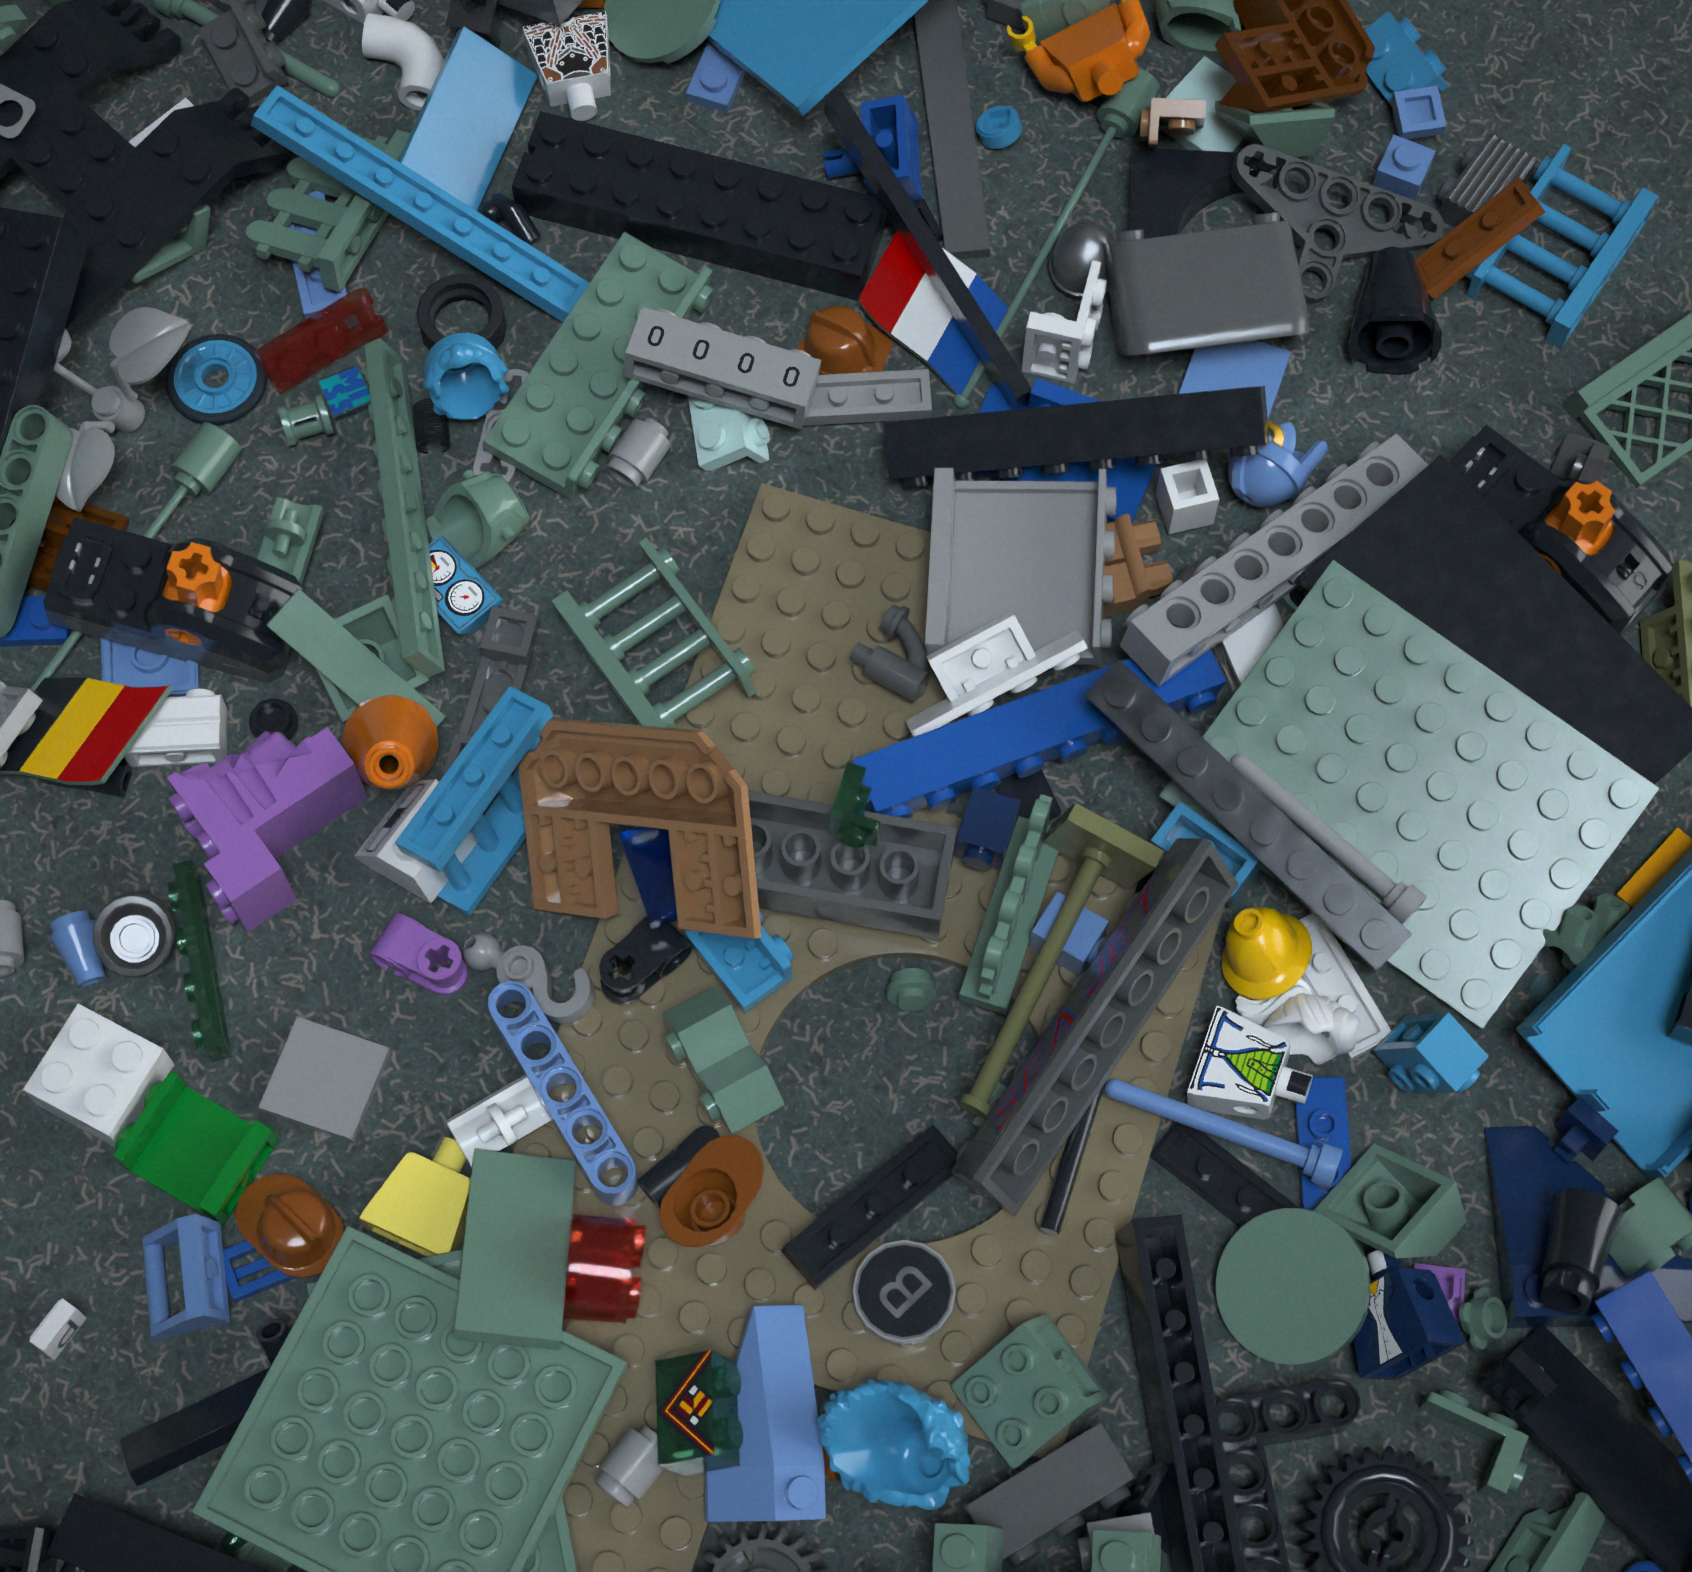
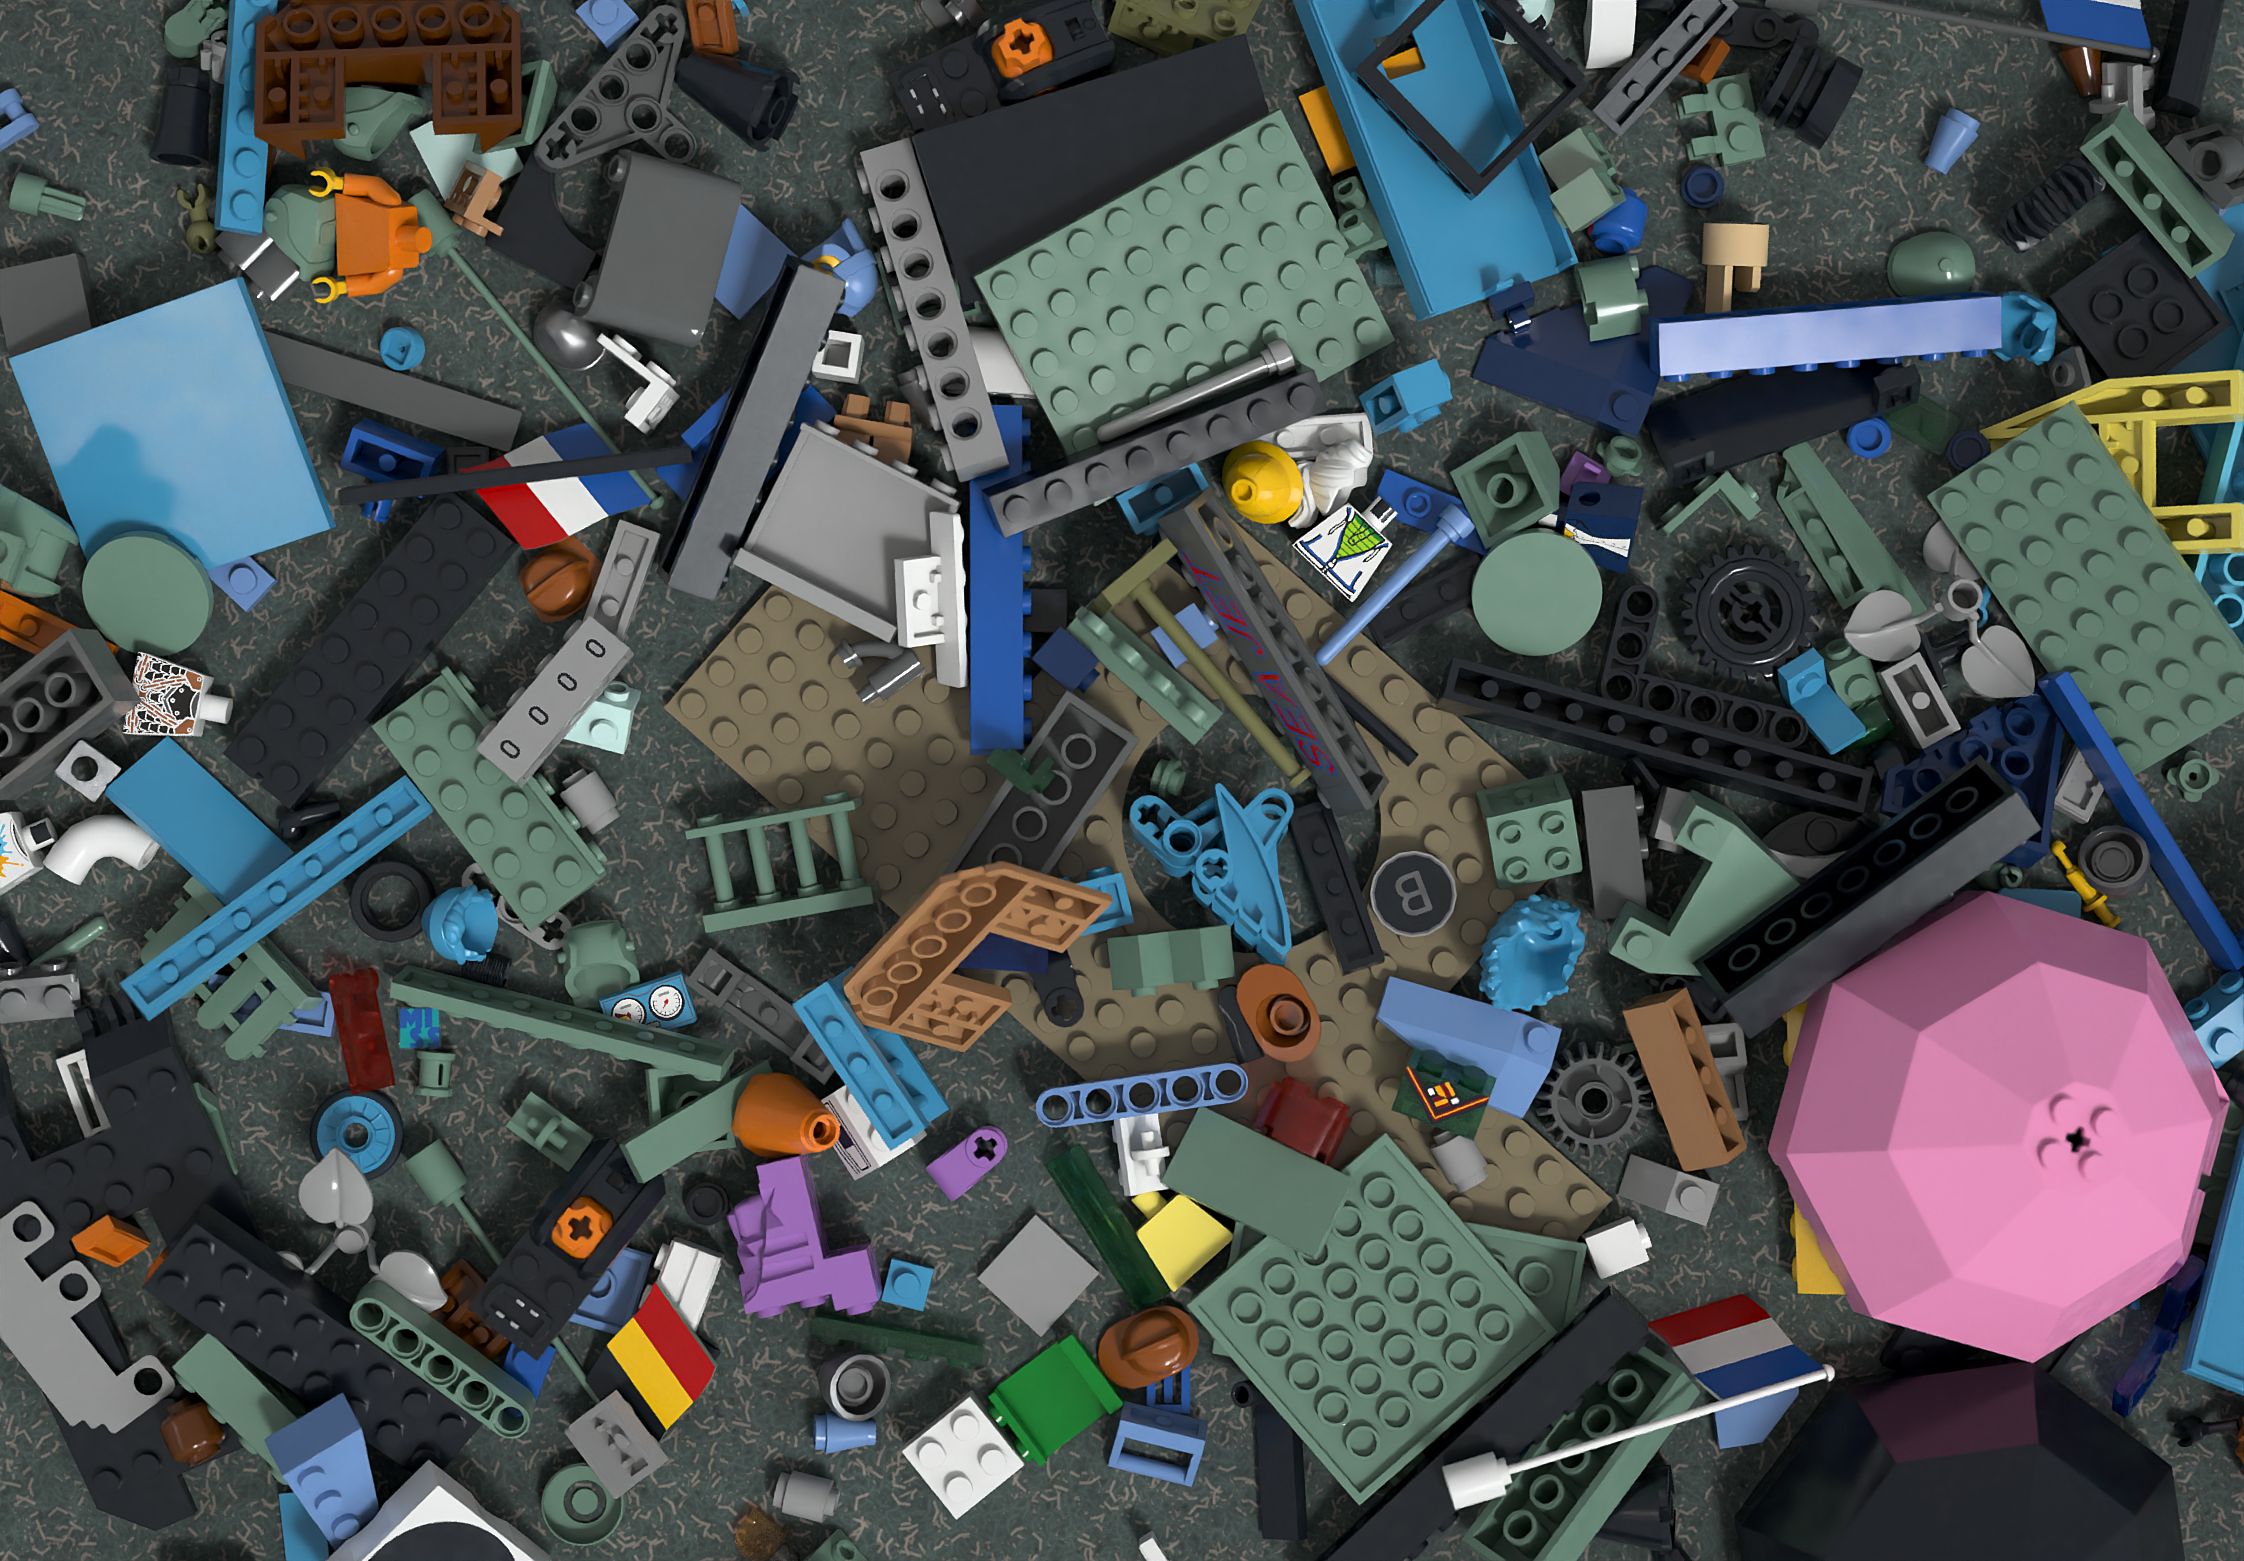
camera: 65 degrees left, 20 degrees up
(23, 184) = (111, 1241): none -> orange tile
(264, 951) = (907, 1284): none -> dark azure plate
(405, 1124) = (1107, 1227): none -> clear green plate
(529, 968) = (1022, 1081): light grey piece -> none
(858, 1094) = (1247, 885): none -> dark azure piece
(1577, 1247) = (1613, 366): black plant -> none

